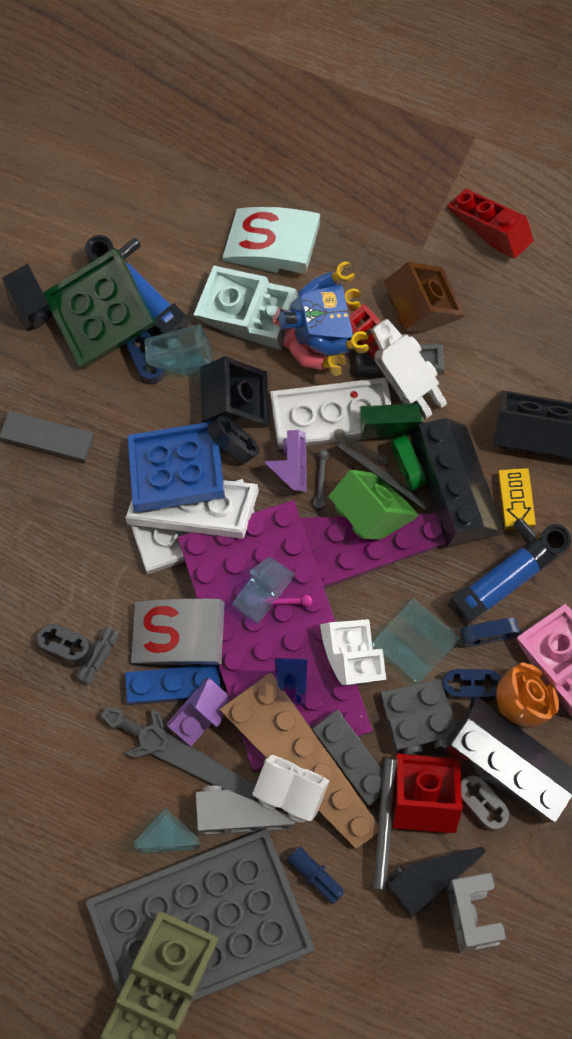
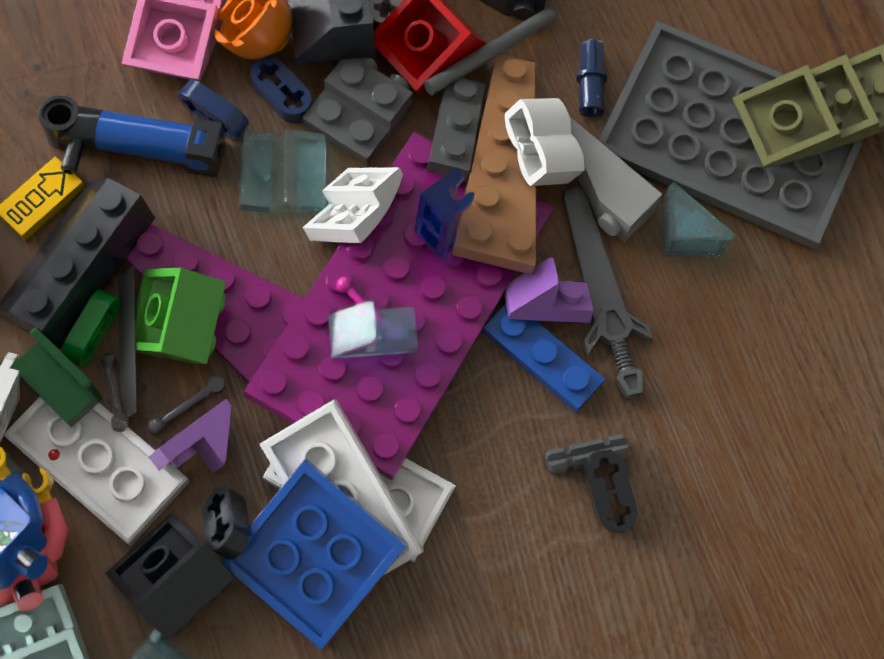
camera: 135 degrees left, 0 degrees up
(178, 632) = (493, 385): light grey slope -> none

